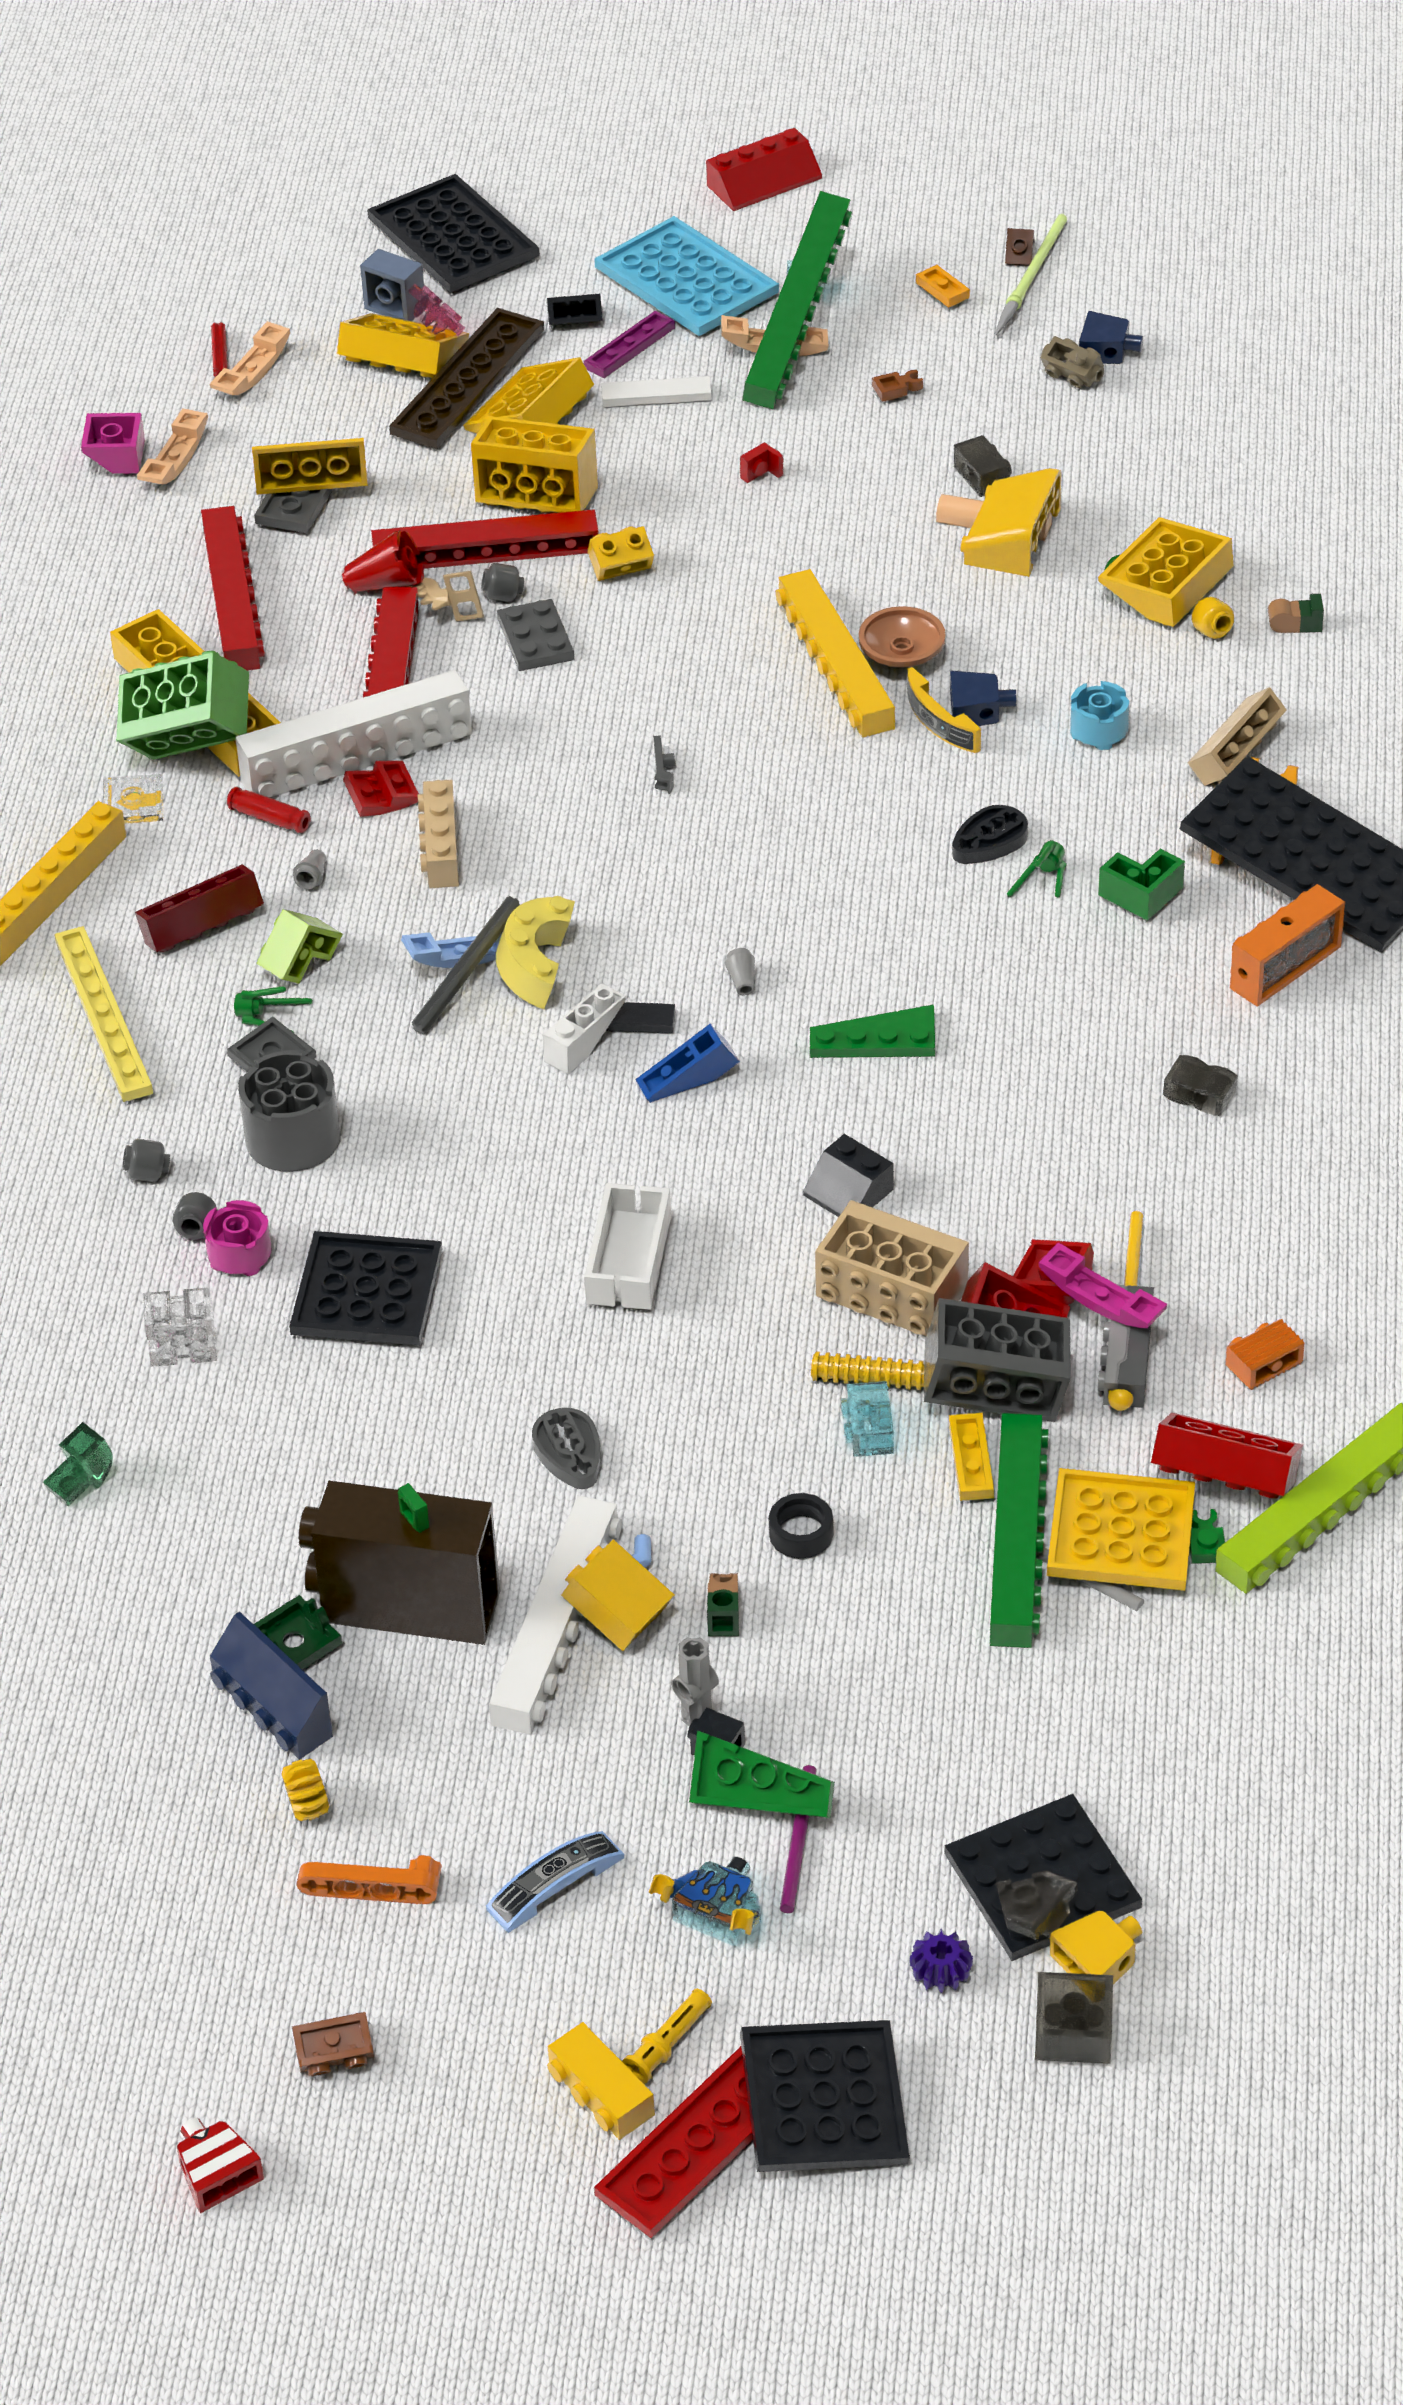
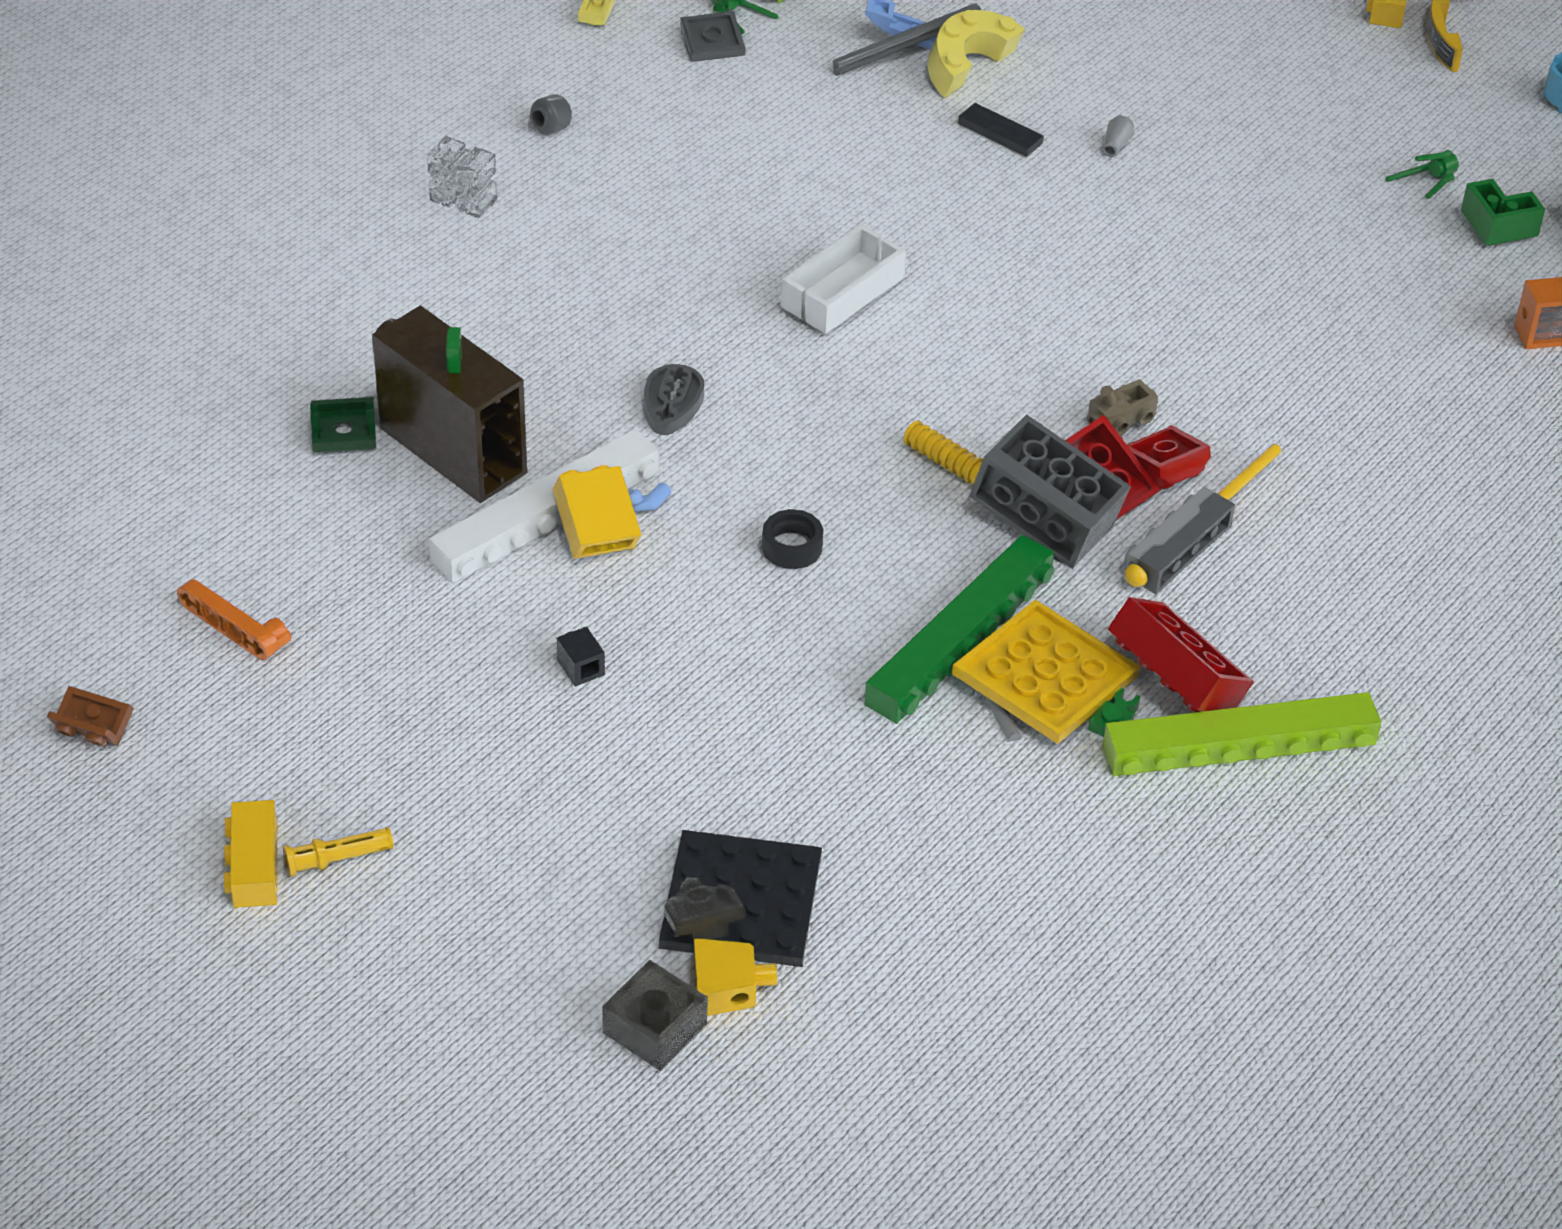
camera: 30 degrees right, 0 degrees up
(86, 1464) = (311, 235): clear green brick -> none
(145, 1160) = (552, 62): dark grey head -> none
(237, 1238) = (563, 140): dark pink brick -> none
(271, 1687) = (285, 450): dark blue slope -> none
(289, 1111) = (676, 72): dark grey brick -> none
(305, 1789) = (242, 529): yellow gear -> none
(366, 1288) = (627, 219): black plate -> none
(549, 1875) = (367, 684): slope -> none
(579, 1030) = (946, 120): white slope -> none
(682, 2151) = (285, 939): red plate -> none
(690, 1065) = (1017, 180): blue slope -> none
(694, 1679) = (588, 595): light grey piece -> none
(713, 1899) = (463, 768): torso -> none
(723, 1605) = (678, 563): dark green leg -> none
(748, 1780) = (573, 699): green wing -> none
(795, 1858) = (576, 764): magenta axle -> none
(824, 2096) = (402, 960): black plate -> none
(849, 1173) = (1064, 315): slope -> none
(869, 1419) = (918, 489): clear light blue brick -> none
(881, 1035) = (1189, 230): green wing -> none
(889, 1267) = (1028, 374): tan brick -> none
(941, 1960) = (595, 913): dark purple gear -> none
(971, 1456) = (975, 555): yellow plate -> none
(978, 696) = (1485, 31): dark blue torso -> none
(984, 837) = (1408, 130): black piece -> none
(985, 1236) = (1124, 405): none -> dark tan brick
(1098, 1293) = (1179, 480): dark pink slope -> none
(1200, 1085) = (1418, 380): clear smoke brick -> none
(1264, 1353) = (1290, 601): orange brick -> none

